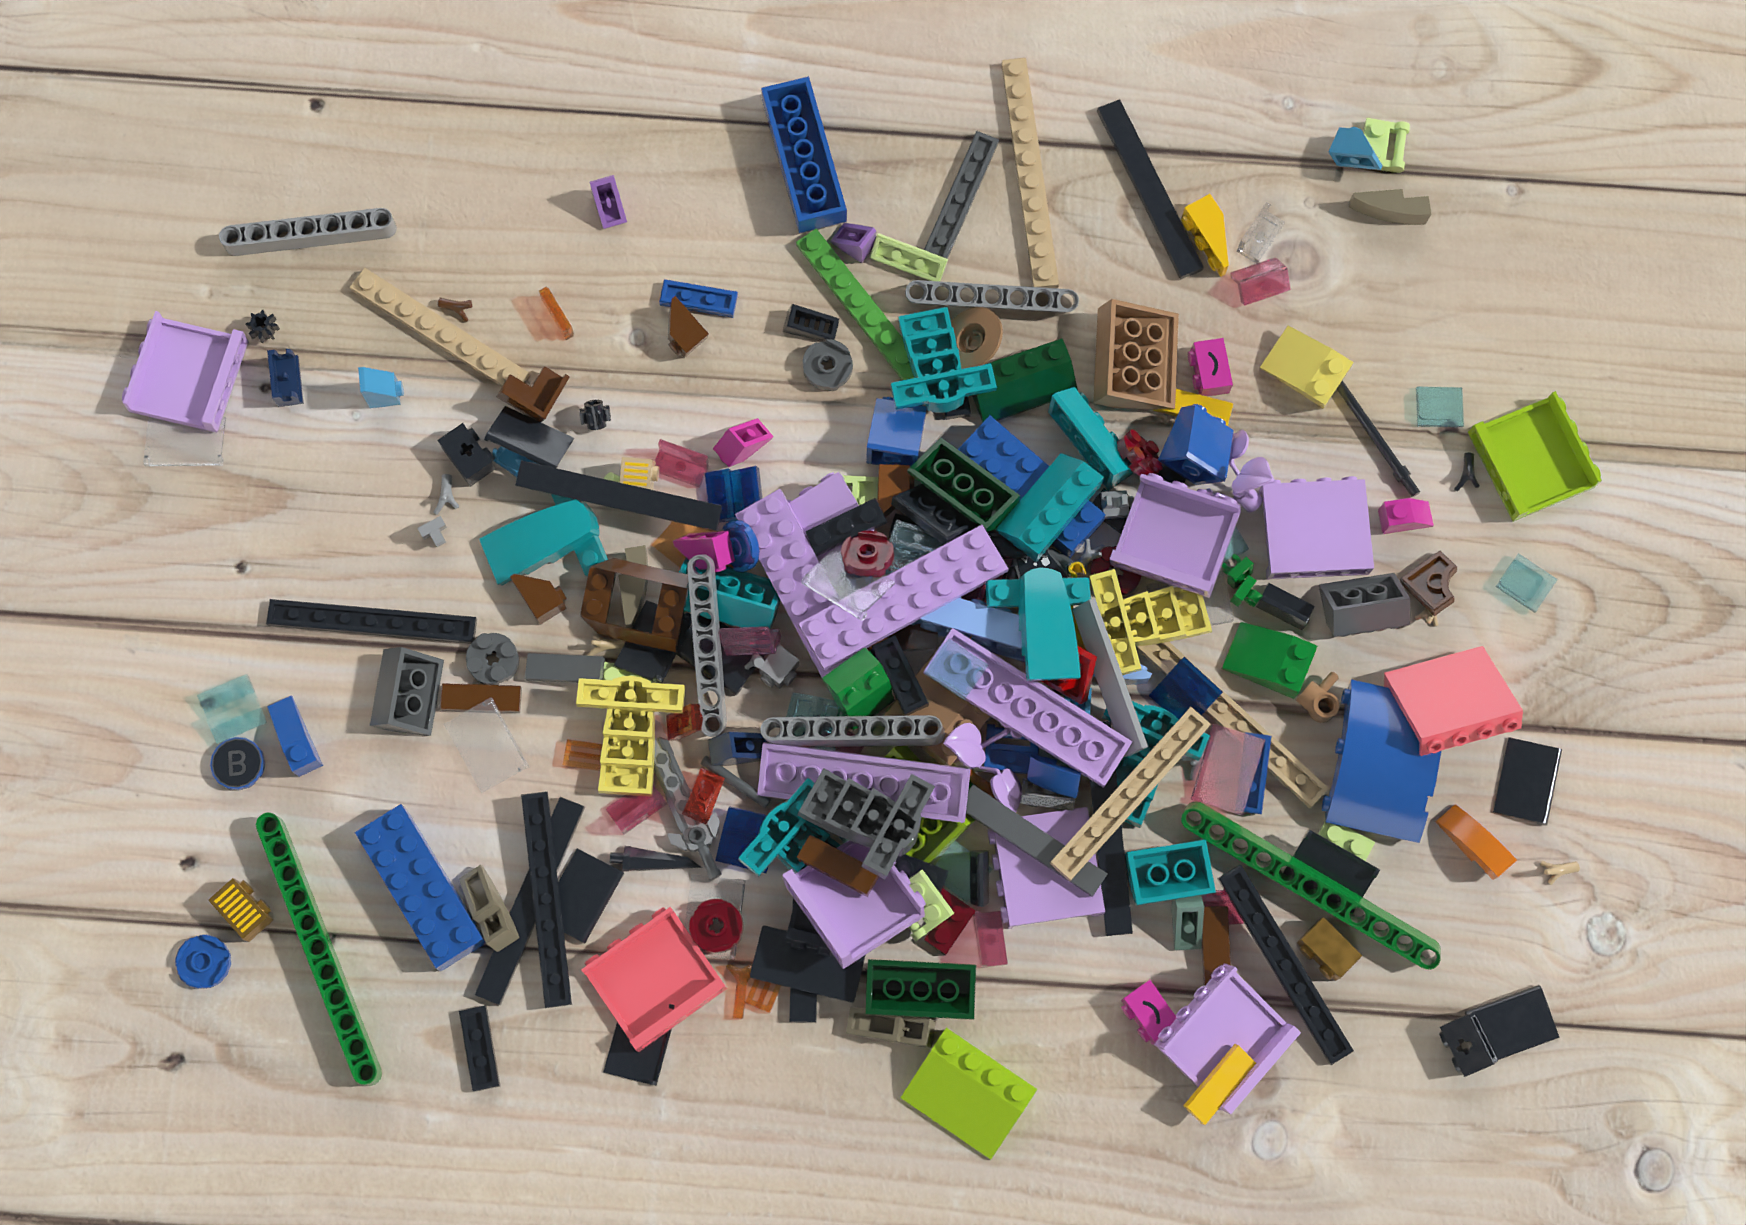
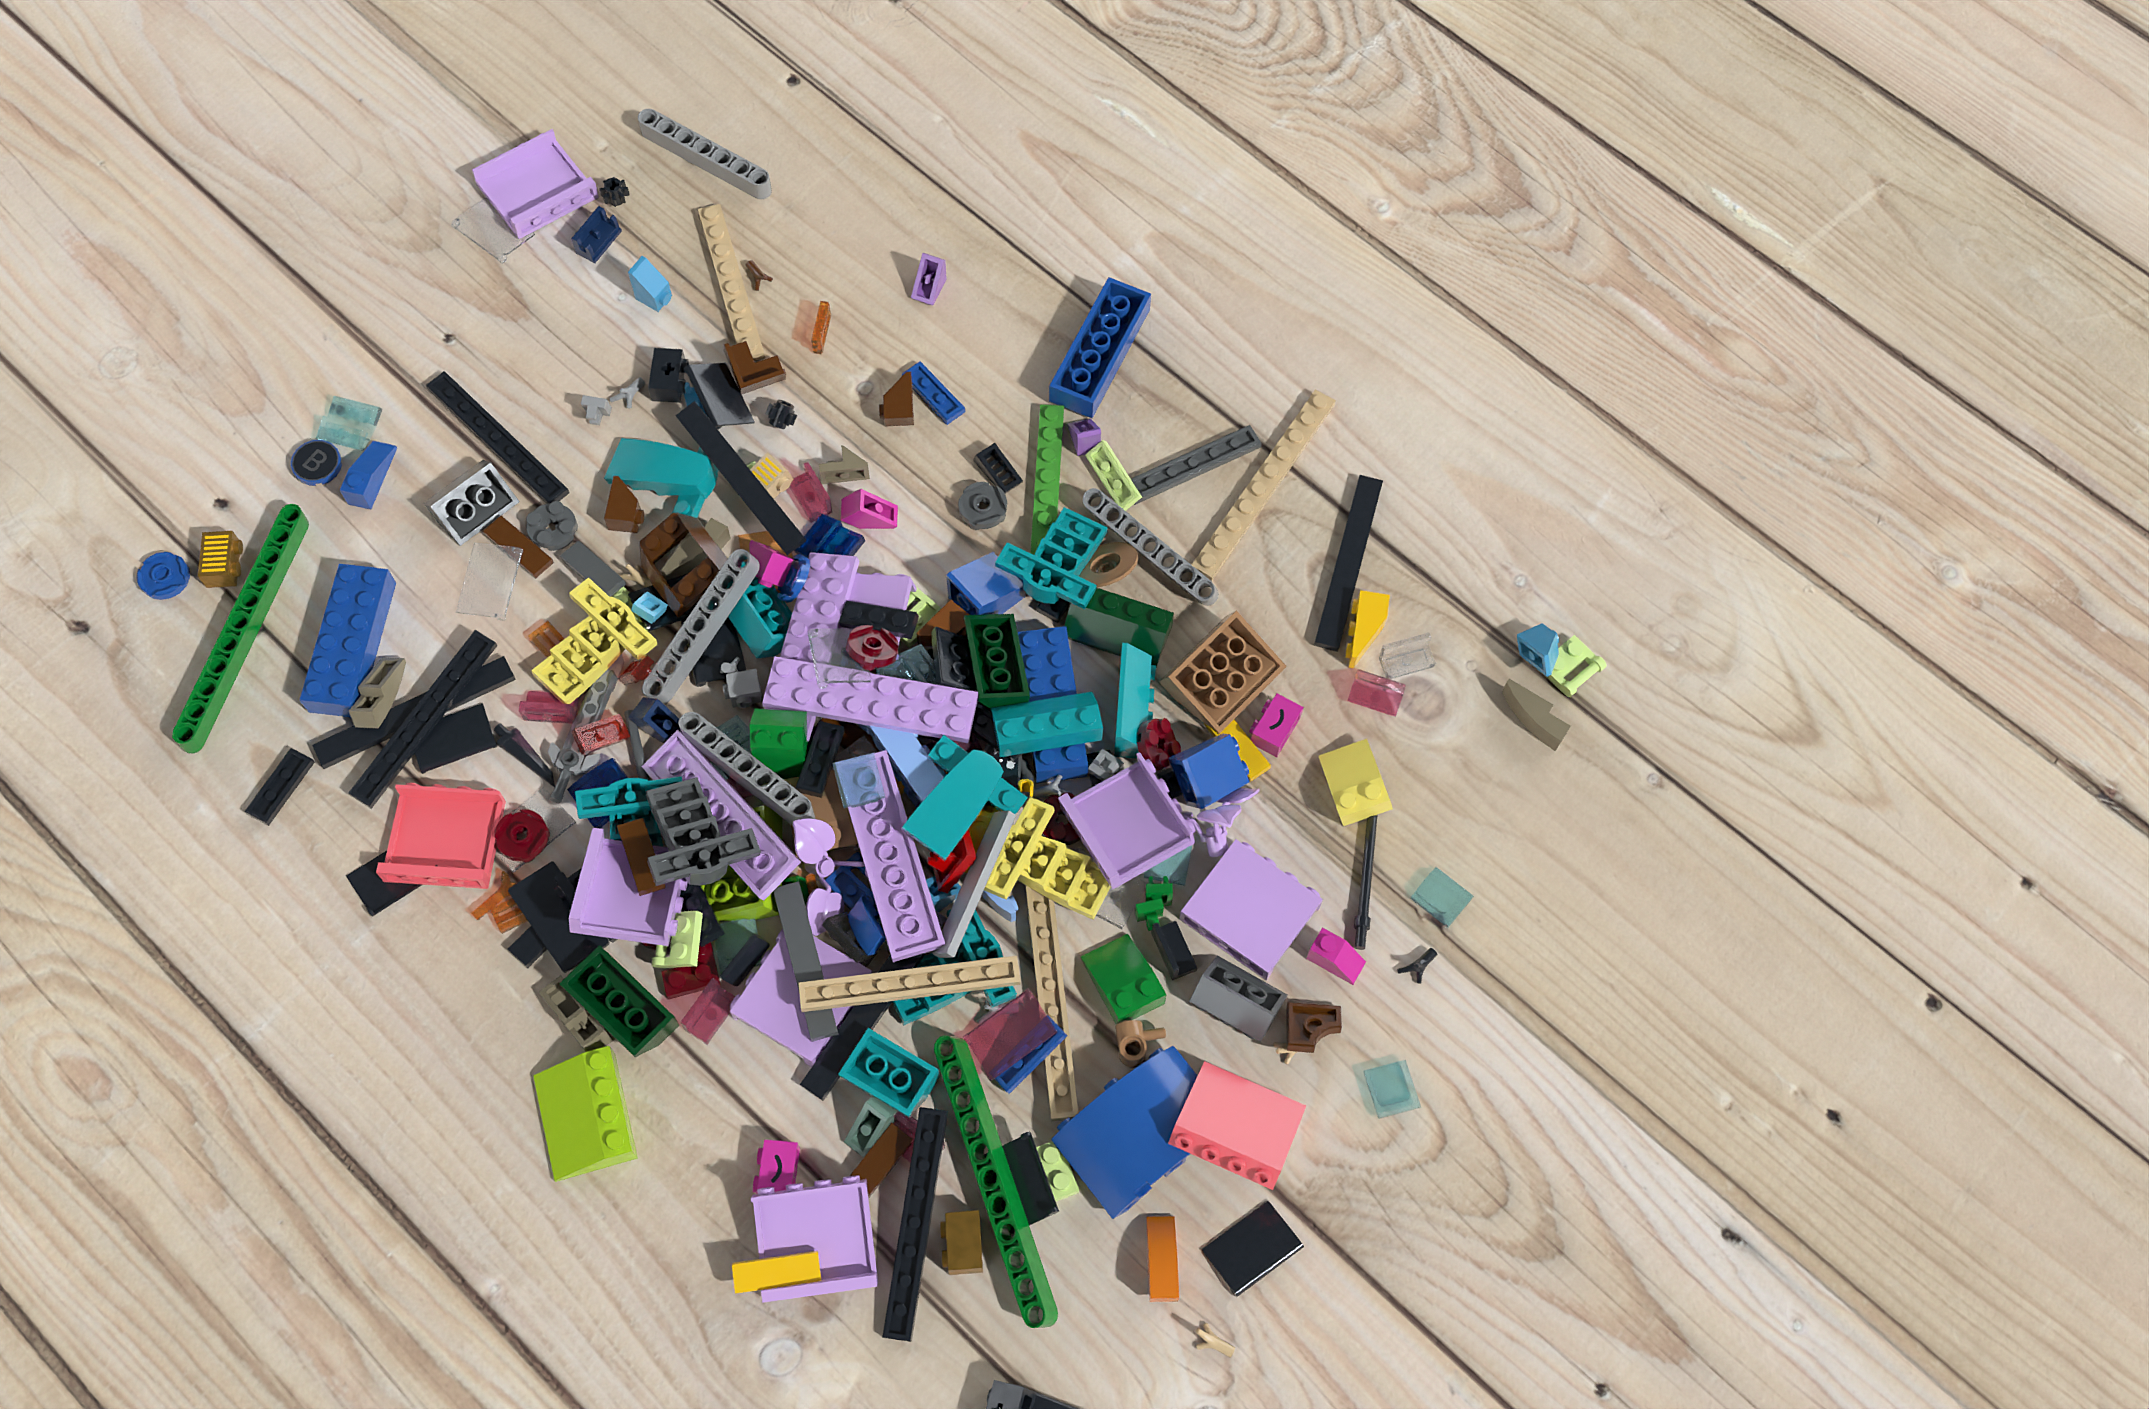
camera: 40 degrees right, 10 degrees down
(647, 663) = (649, 607): none -> medium azure plate
(693, 416) = (850, 469): none -> dark tan slope
(750, 640) = (737, 648): clear pink panel -> none
(1185, 688) = (1034, 947): clear blue slope -> none
(1535, 457) = (1487, 996): lime panel -> none

